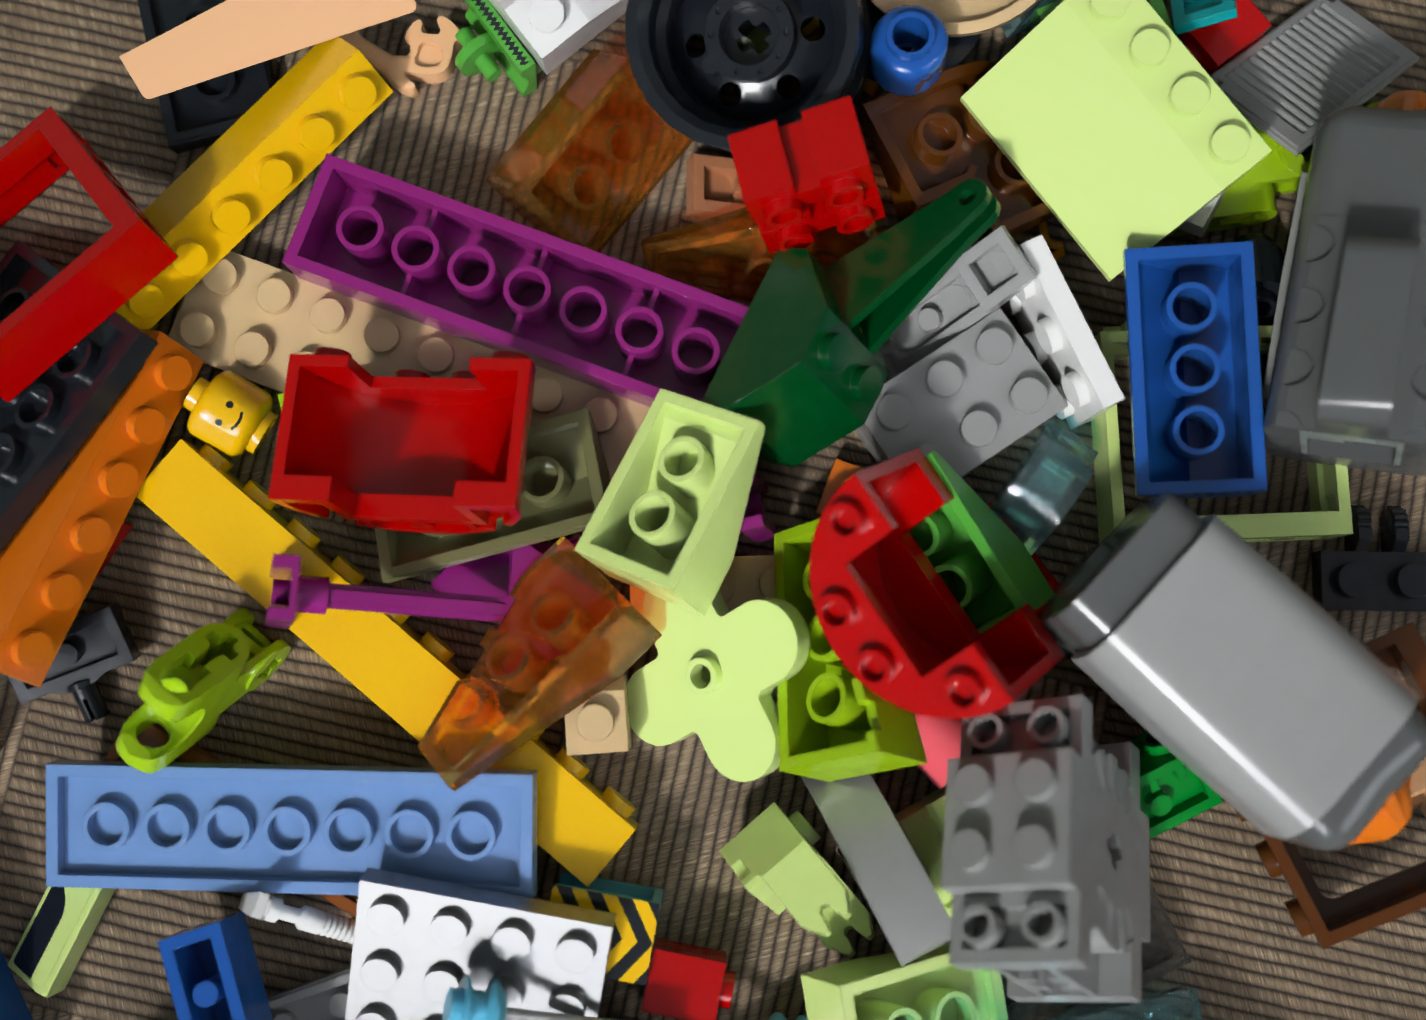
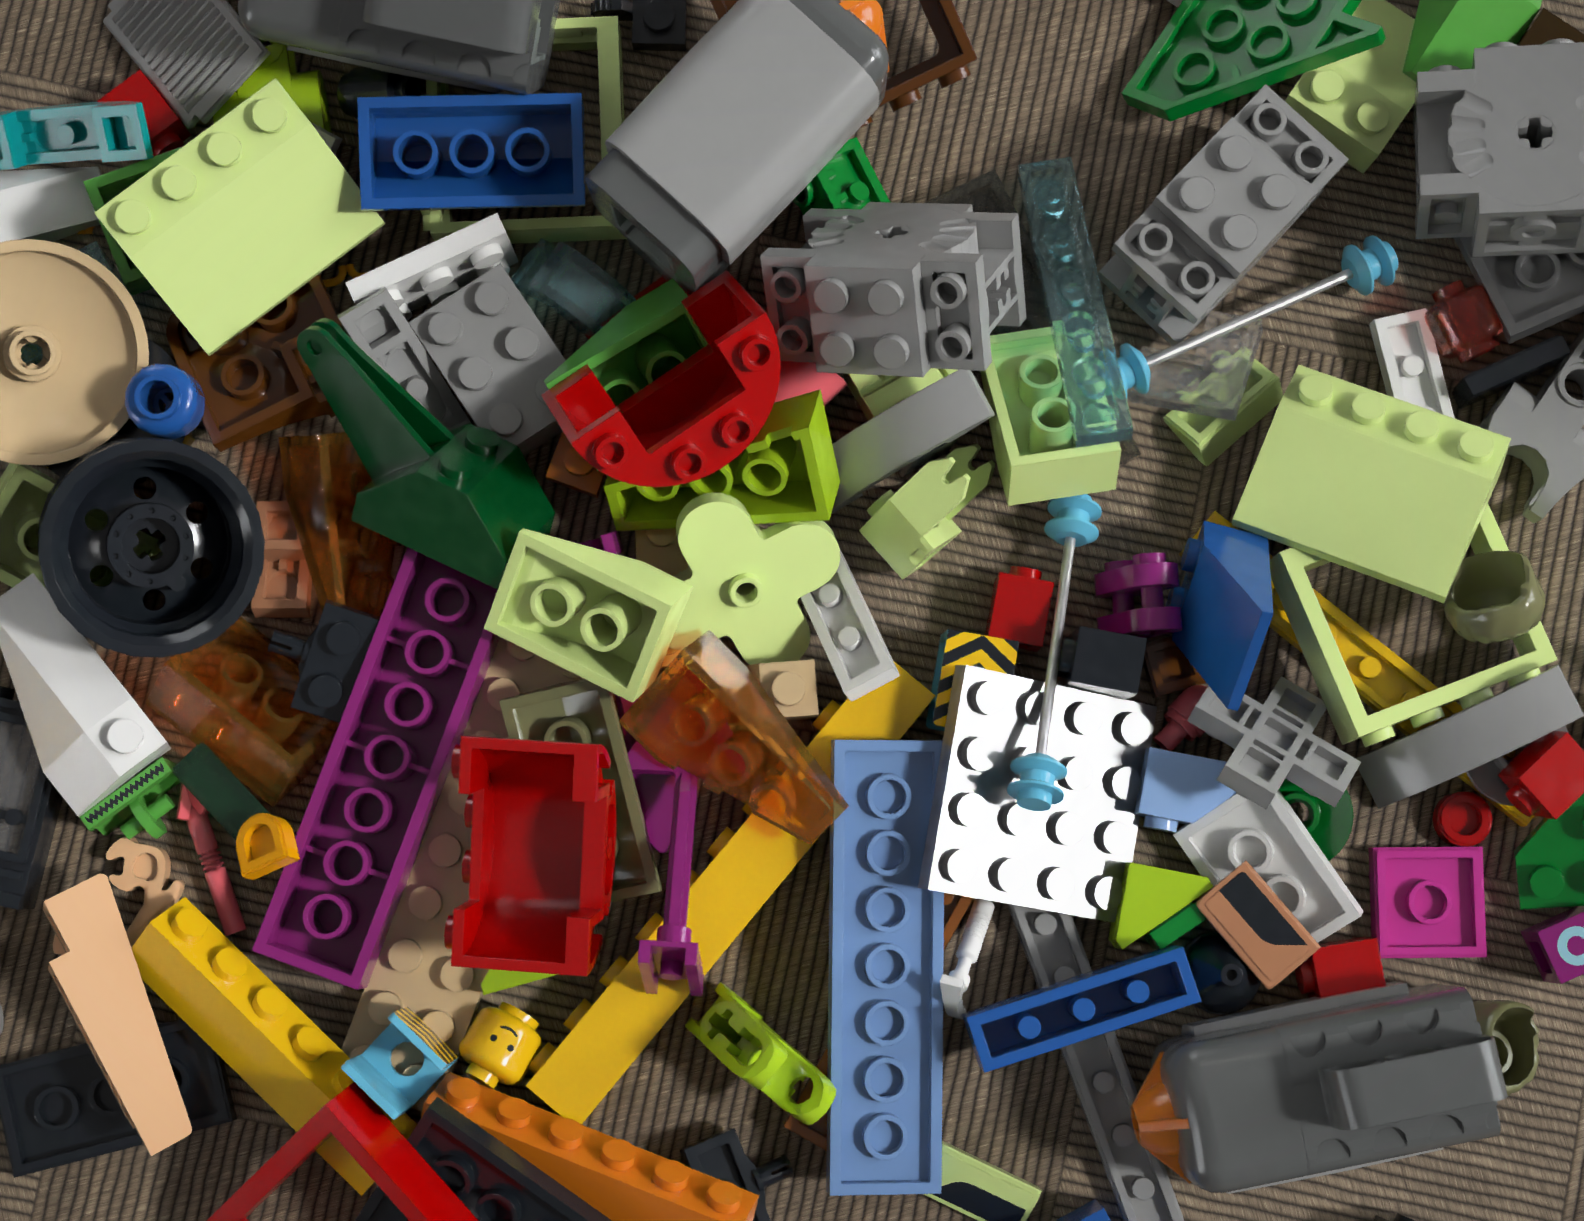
camera: 95 degrees left, 0 degrees up
(185, 288) = (380, 1080): none -> medium azure piece
(436, 165) = (265, 845): none -> light orange tile
(487, 103) = (216, 876): none -> coral piece
(492, 127) = (217, 788): none -> clear green slope
(636, 228) = (328, 658): none -> black plate
(654, 792) = (849, 634): none -> white plate
(807, 176) = (292, 489): red brick -> none

